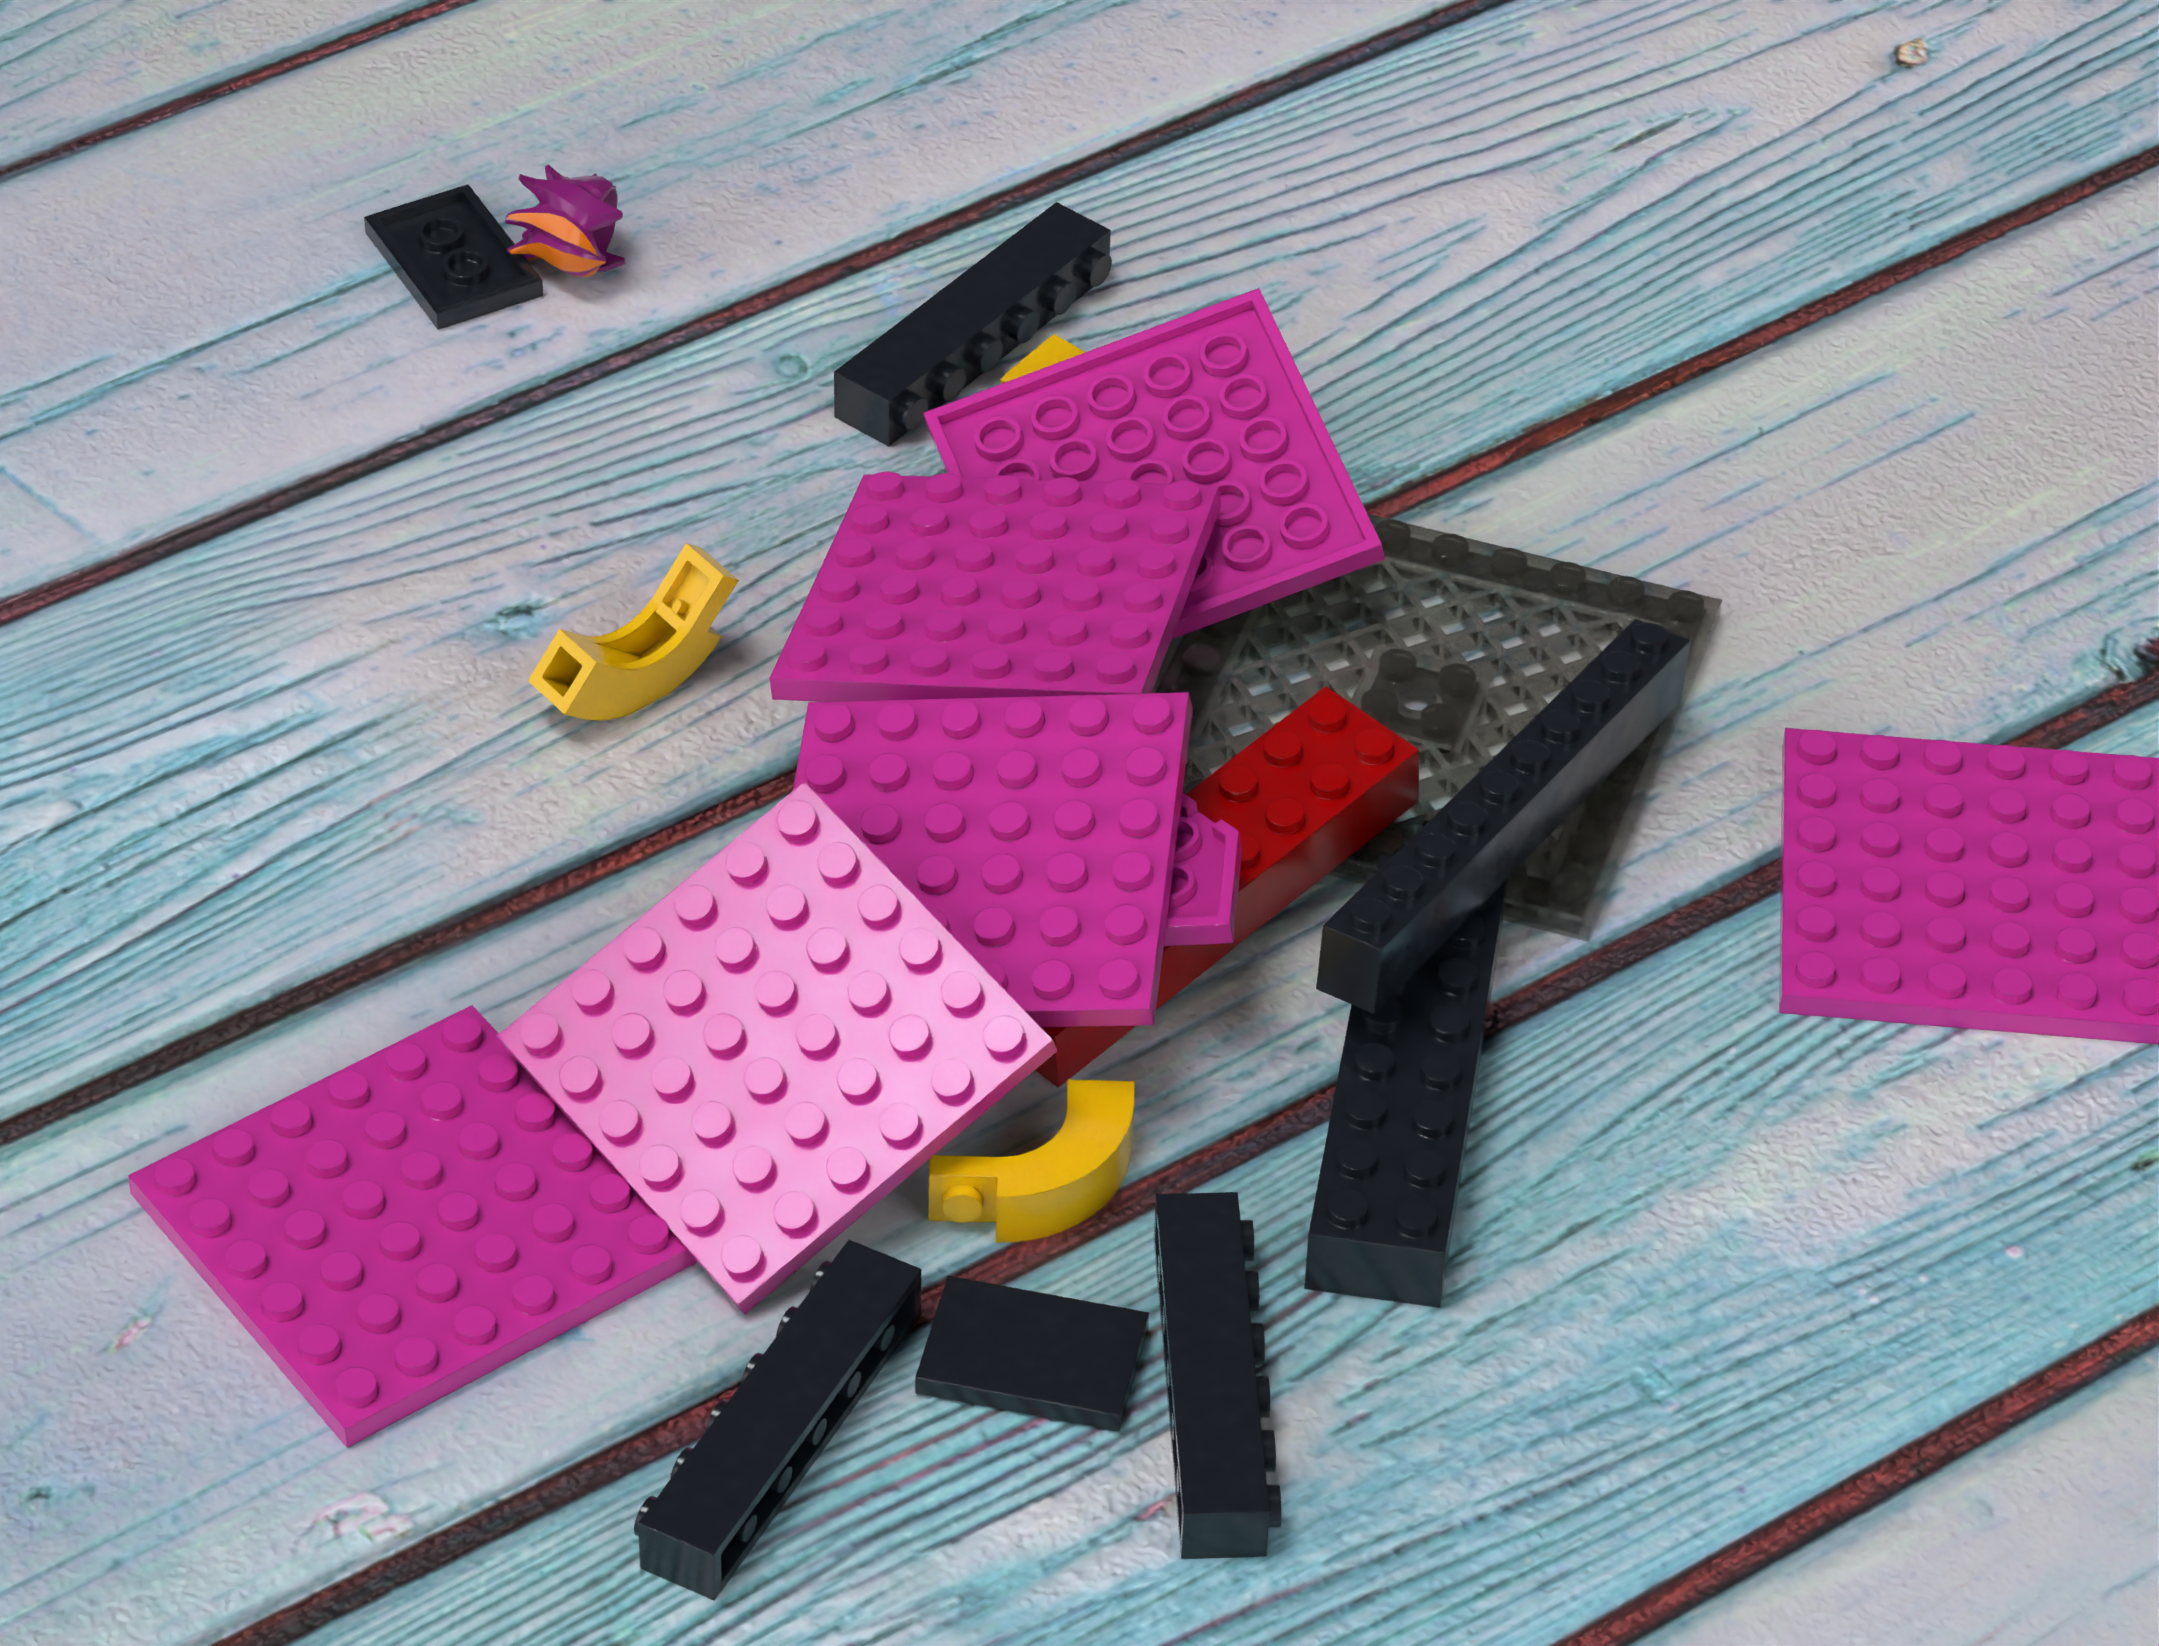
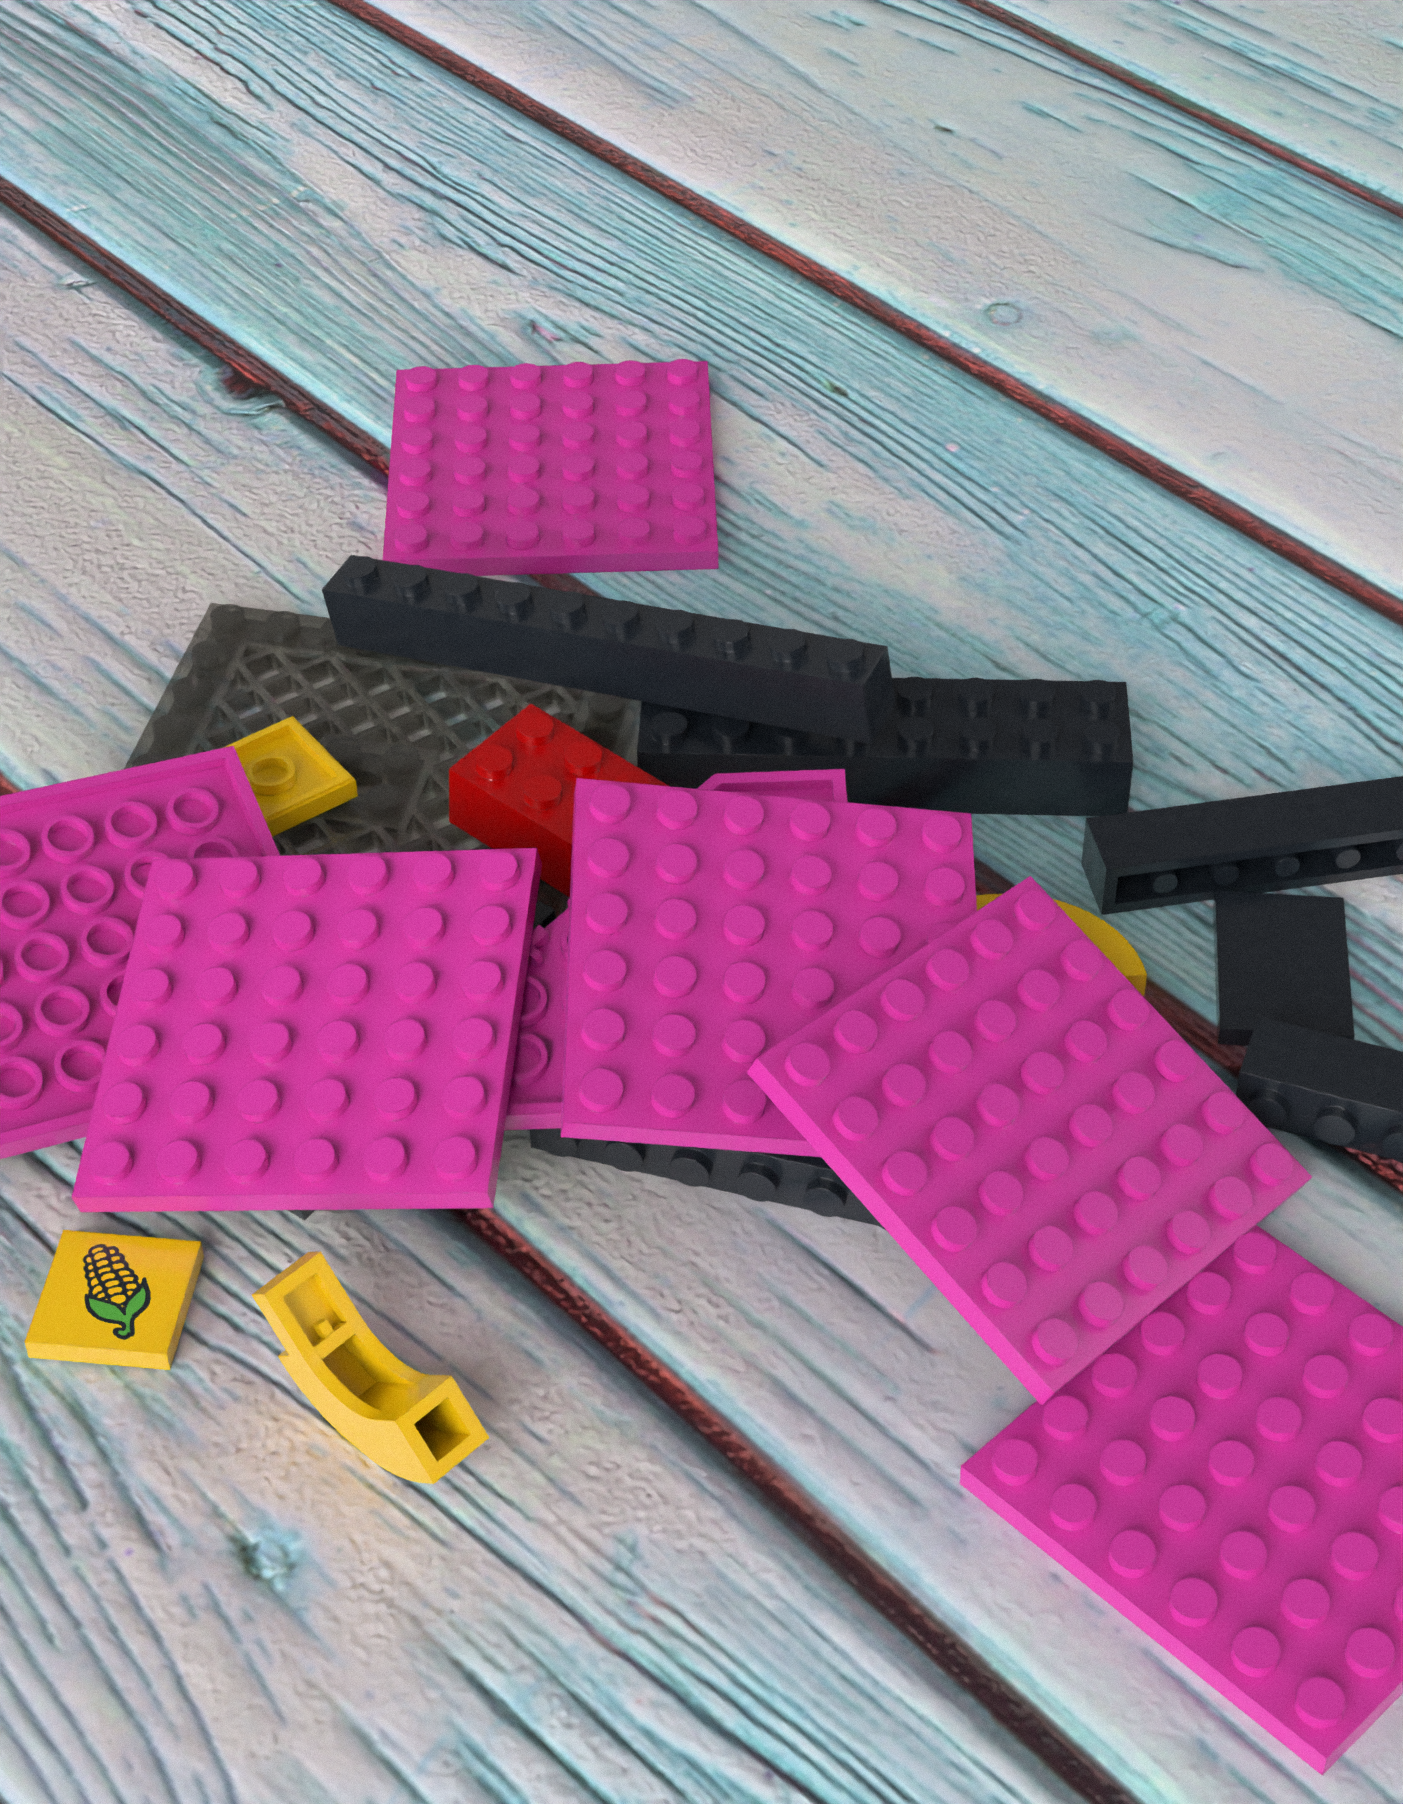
camera: 95 degrees left, 0 degrees up
(781, 530) = (115, 1300): none -> yellow tile
(1403, 618) = (292, 774): none -> yellow tile

